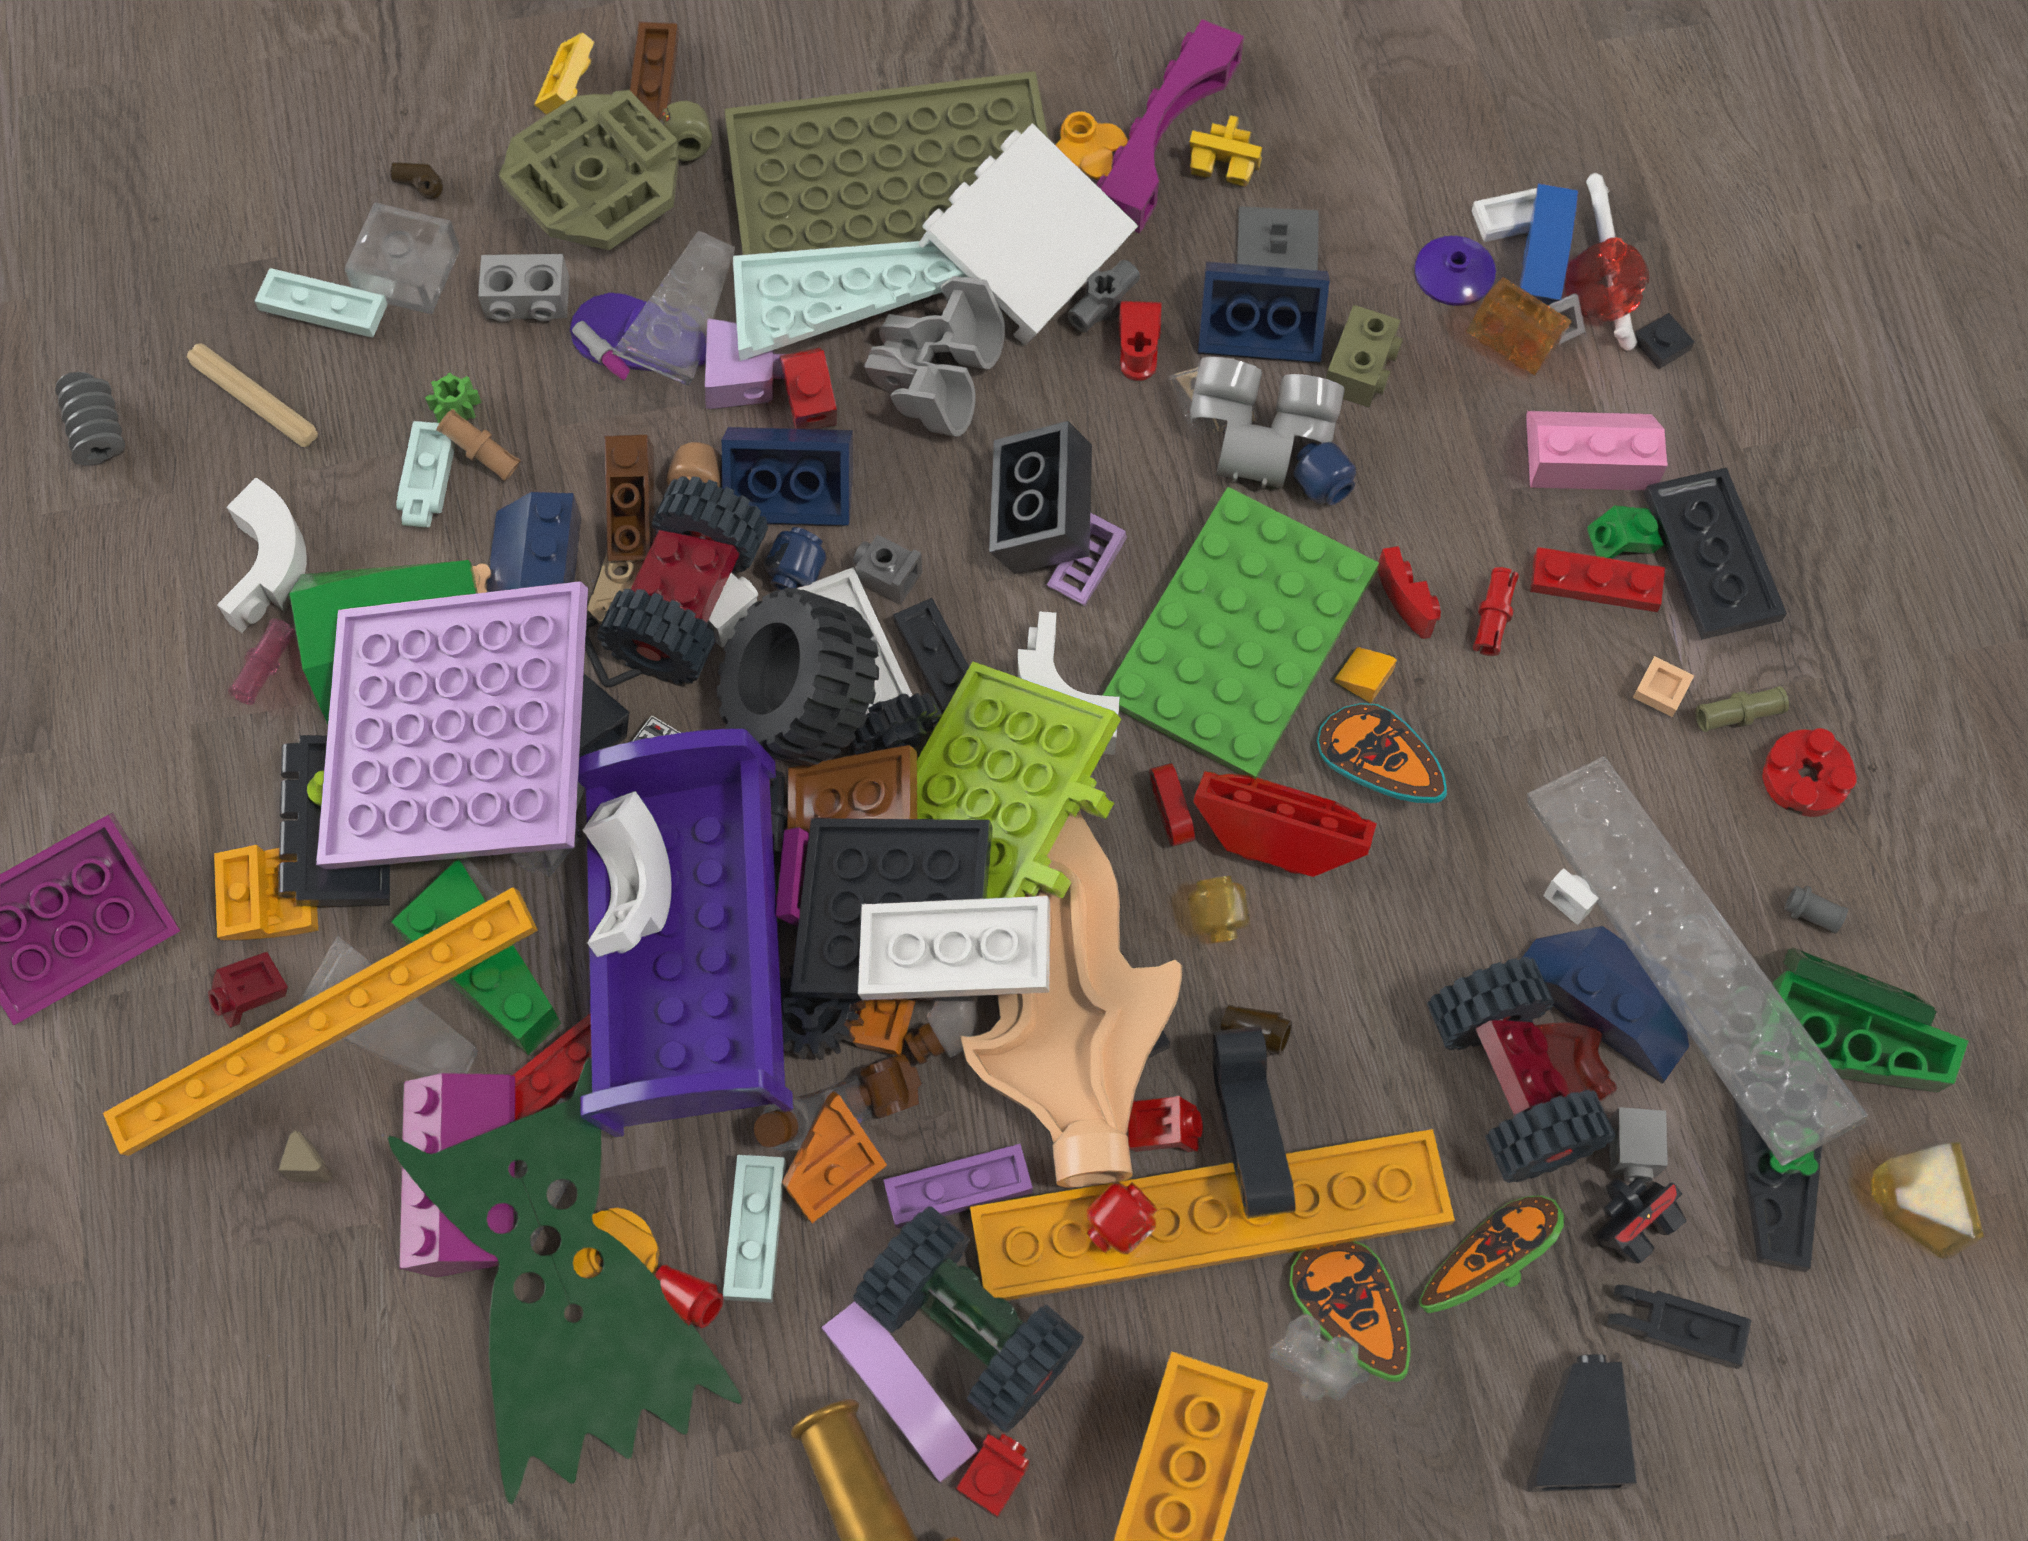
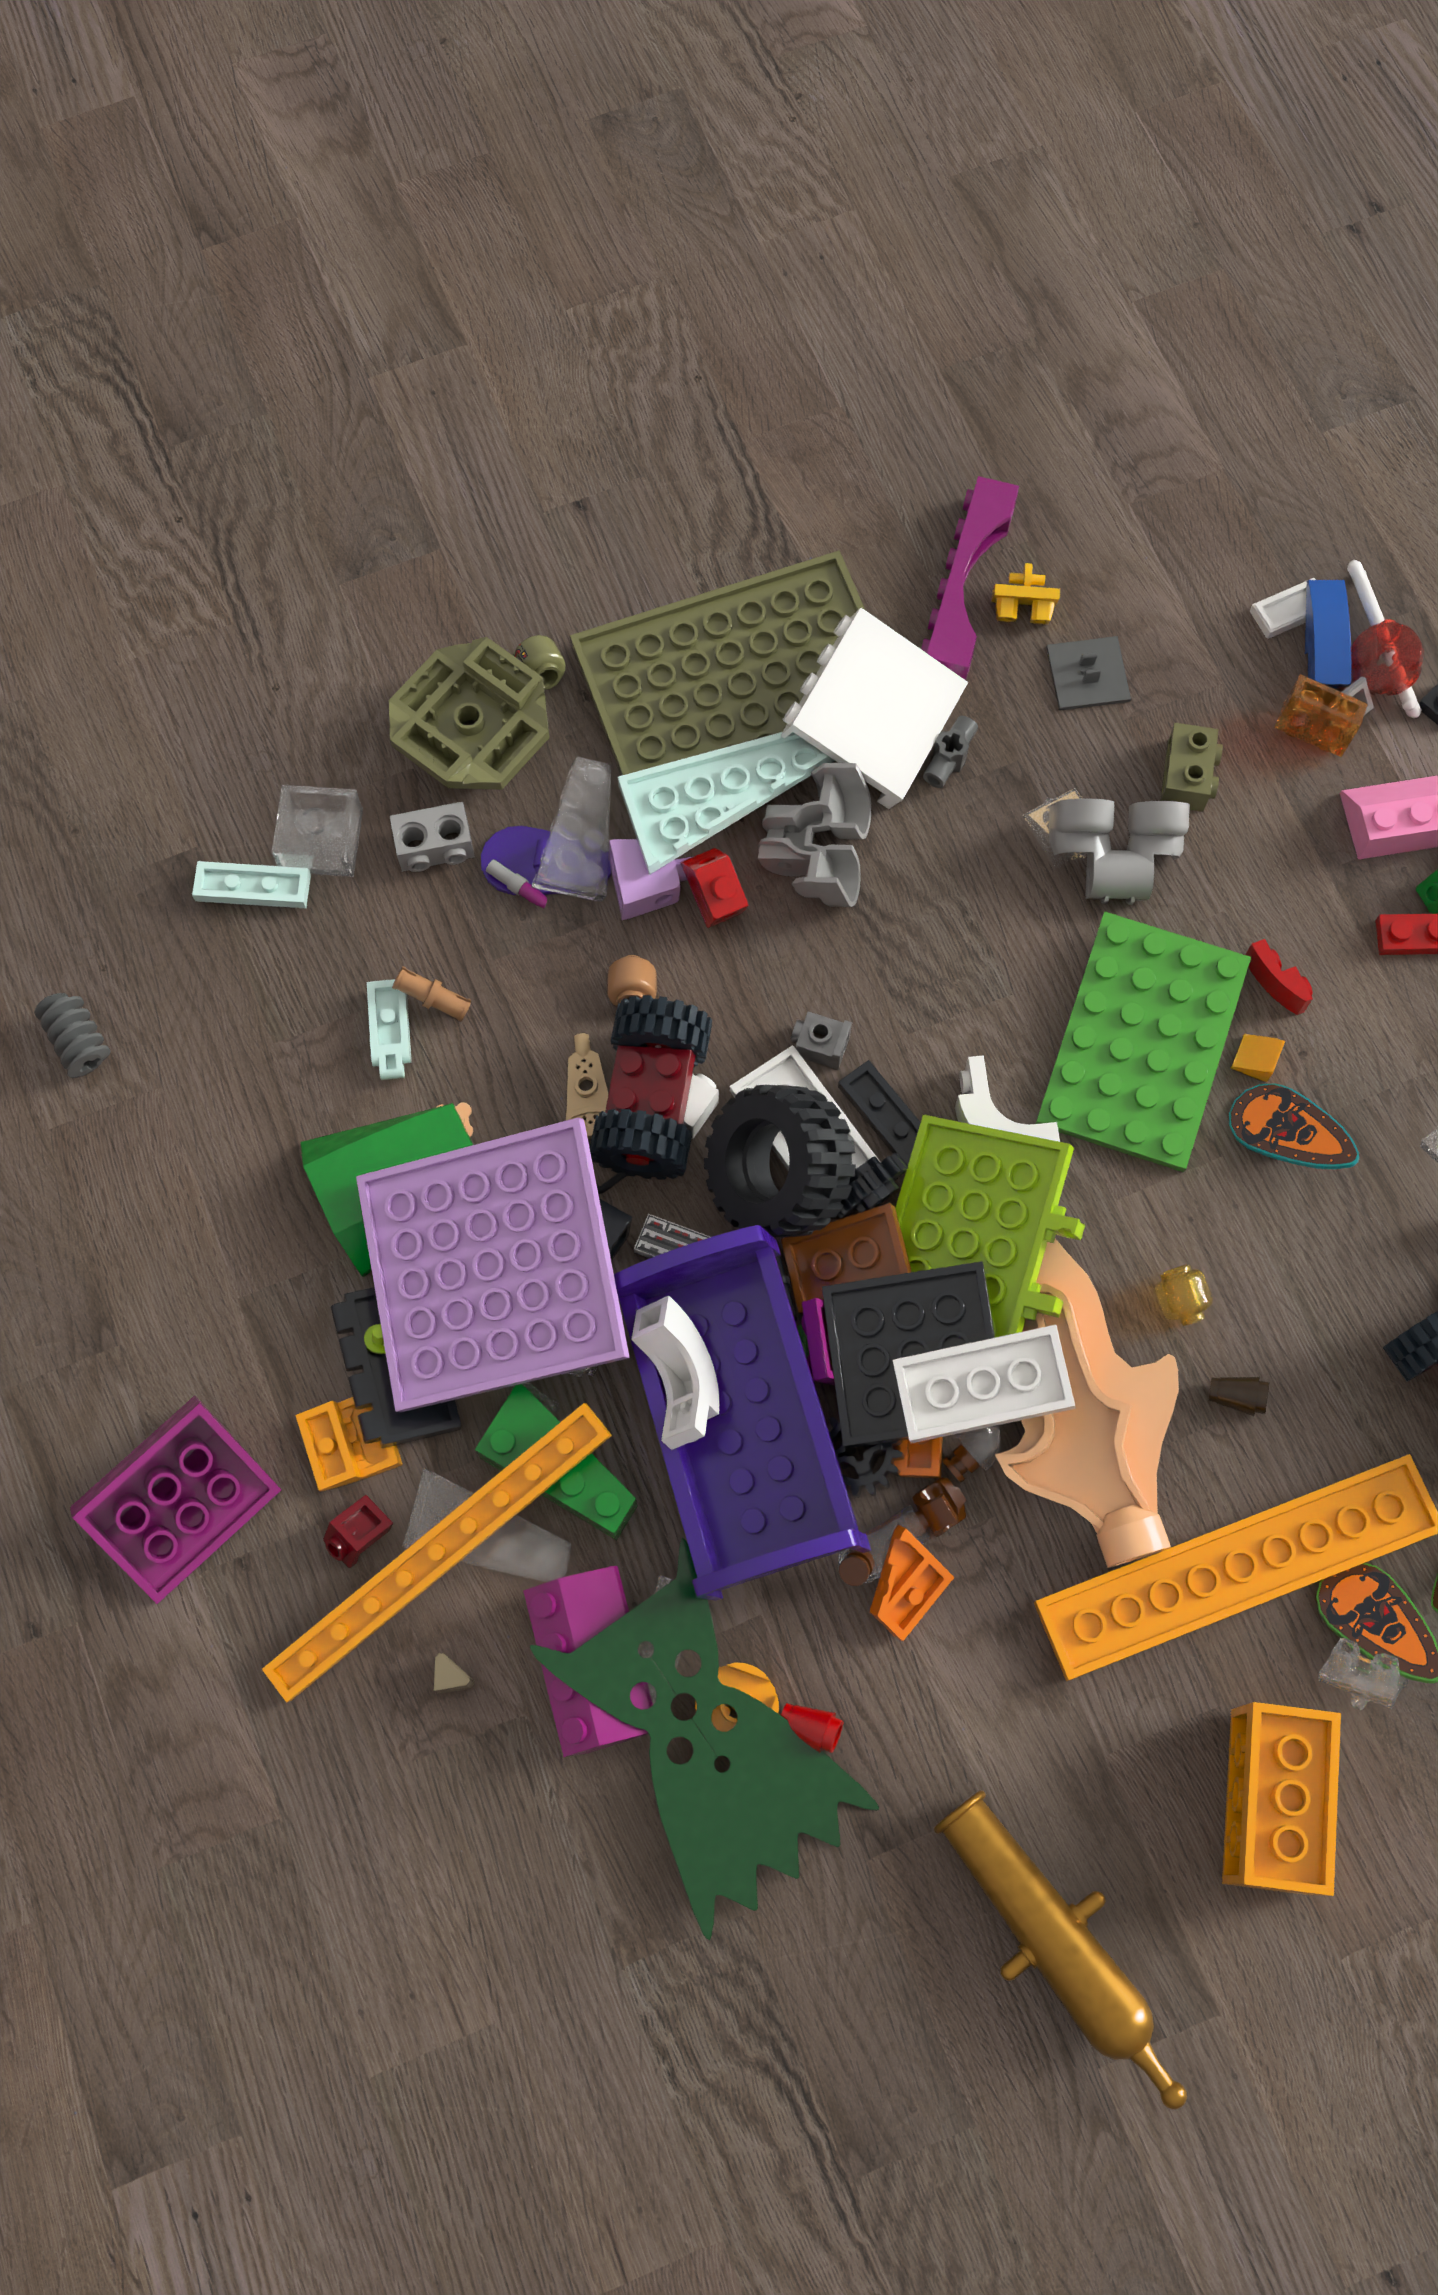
camera: 10 degrees left, 5 degrees up
(252, 395) = (211, 982): tan axle -> none
(262, 661) = (289, 1230): clear pink pin -> none
(279, 559) = (265, 1102): white arch -> none
(421, 175) = (310, 747): dark brown arm -> none
(455, 394) = (393, 946): bright green gear -> none
(535, 542) = (504, 1084): dark blue slope -> none
(553, 1071) = (650, 1548): red plate -> none
(564, 73) = (415, 626): yellow plate -> none
(629, 496) = (579, 1019): reddish brown slope -> none
(655, 65) = (495, 604): reddish brown plate -> none
(754, 1228) = (854, 1656): light aqua plate -> none
(791, 472) = (716, 967): dark blue slope -> none
(795, 559) = (739, 1048): dark blue head -> none
(901, 1390) = (1012, 1769): lavender slope -> none
(923, 1273) = (1118, 1723): black plate -> none
(959, 1184) = (1019, 1583): medium lavender plate -> none
(995, 1474) = (1110, 1827): red bracket -> none
(1041, 498) = (945, 952): black brick -> none
(1092, 149) = (906, 614): light orange plate -> none
(1116, 539) = (1002, 969): lavender slope -> none
(1121, 1218) = (1170, 1587): red head -> none
(1139, 338) = (990, 781): red piece -> none
(1164, 1125) = (1184, 1494): red bracket -> none
(1171, 804) = (1120, 1208): red beam -> none
(1251, 1122) = (1238, 1443): black beam -> none
(1263, 311) = (1093, 740): dark blue slope -> none
(1282, 824) = (1224, 1208): red wedge -> none
(1324, 473) = (1182, 881): dark blue head -> none
(1451, 282) = (1244, 682): dark purple dish -> none
(1495, 611) = (1356, 980): red pin -> none

